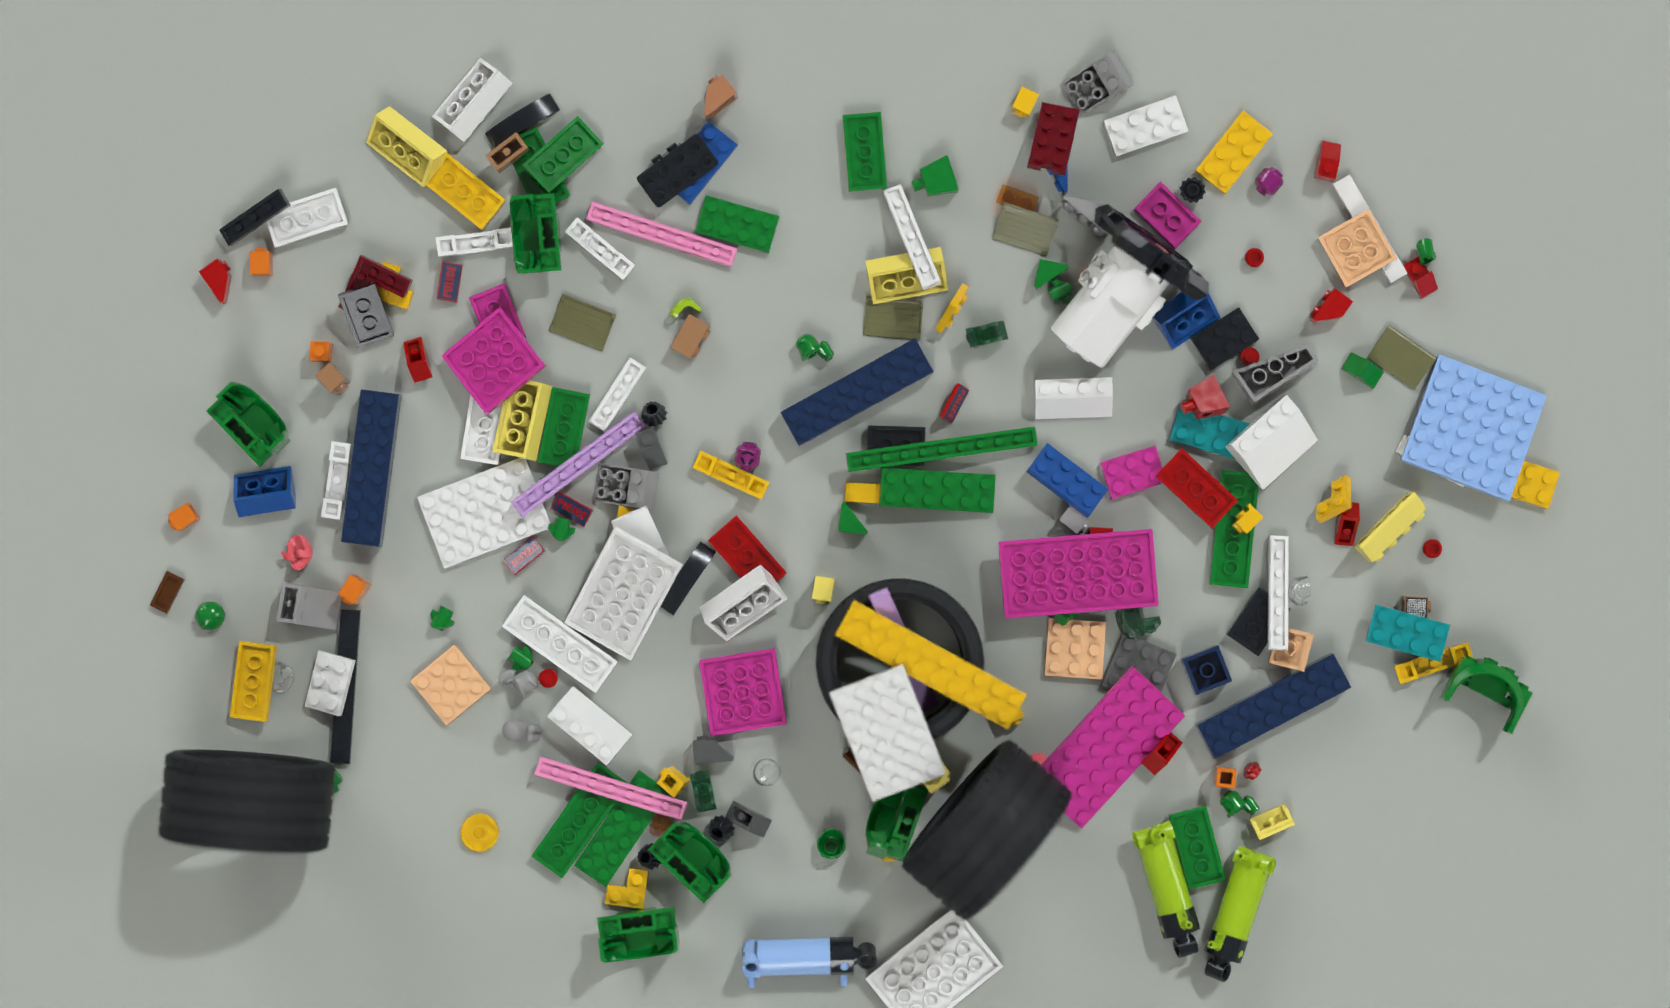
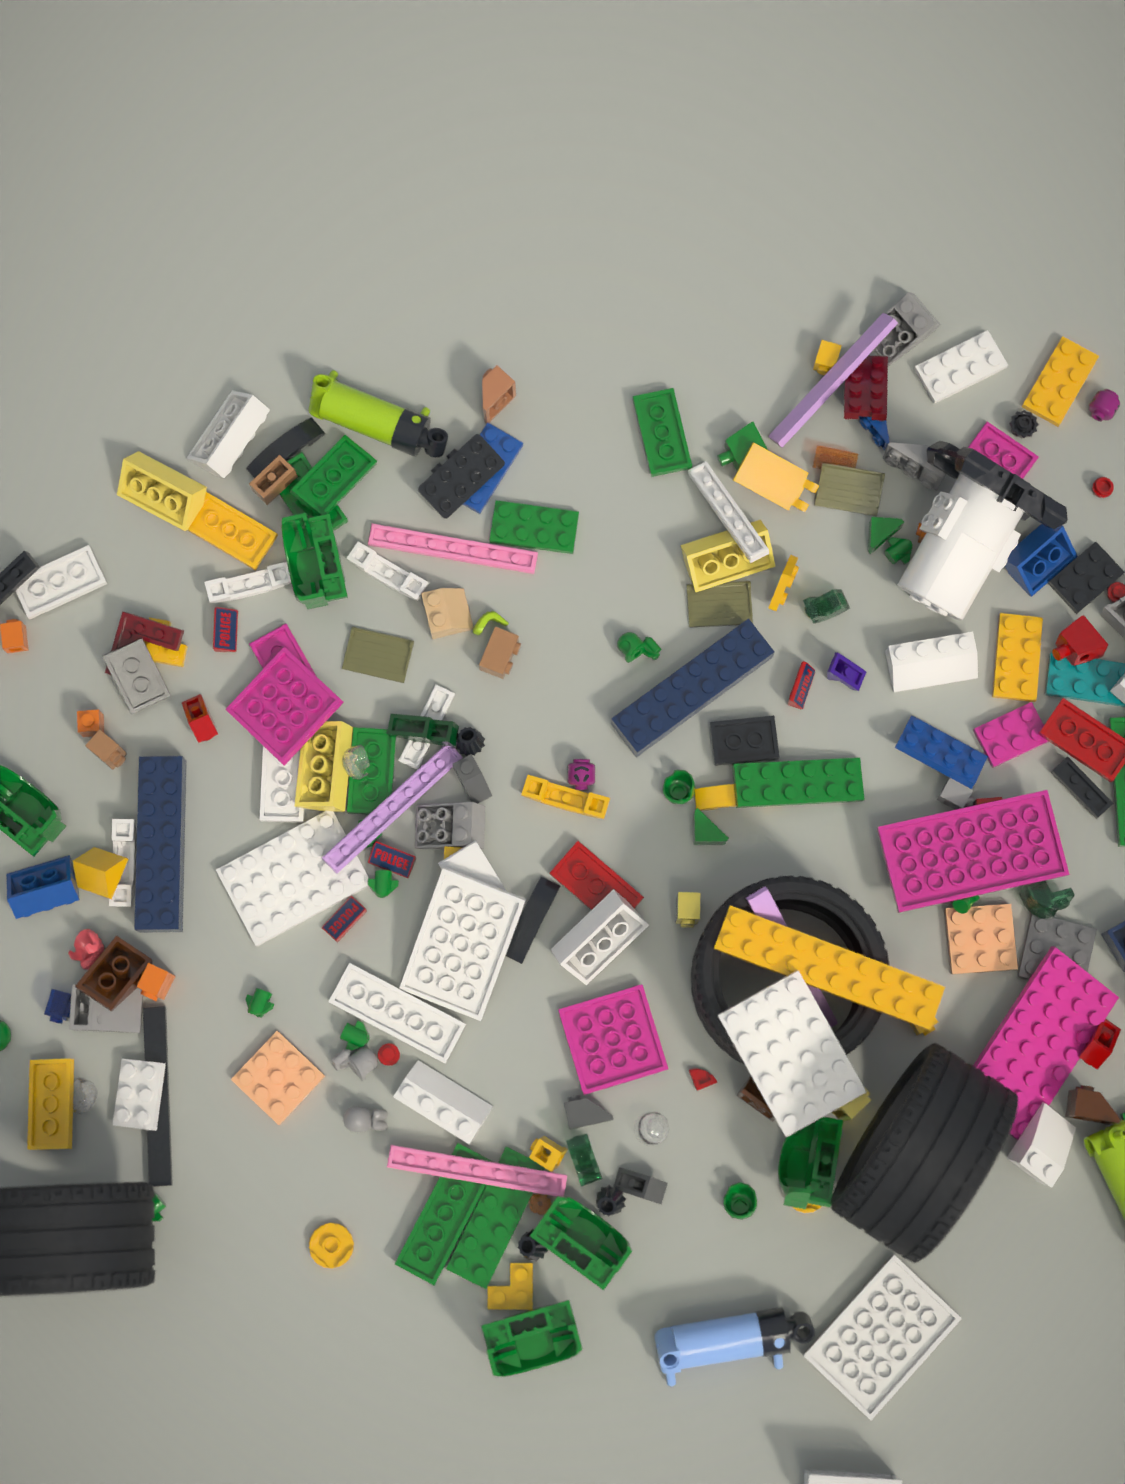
camera: 10 degrees left, 10 degrees down
(268, 598) = (58, 1006): none -> clear blue window
(315, 485) = (99, 871): none -> yellow slope
(320, 579) = (114, 974): none -> reddish brown slope
(549, 420) = (355, 762): none -> clear hair
(606, 104) = (375, 417): none -> lime piece
(613, 398) = (423, 729): none -> dark green slope
(648, 293) = (447, 611): none -> tan slope
(814, 735) = (702, 1078): none -> red tile
(831, 480) = (679, 787): none -> green hair
(941, 449) = (795, 736): green plate -> none
(958, 210) = (774, 478): none -> yellow tile
(995, 397) = (846, 672): none -> dark purple slope
(1025, 126) = (833, 379): none -> lavender tile
(1097, 833) = (1044, 1146): none -> white slope
(1141, 805) = (1090, 1106): none -> reddish brown slope
(1150, 403) = (1017, 657): none -> yellow plate
(1186, 528) = (1082, 787): none -> black plate

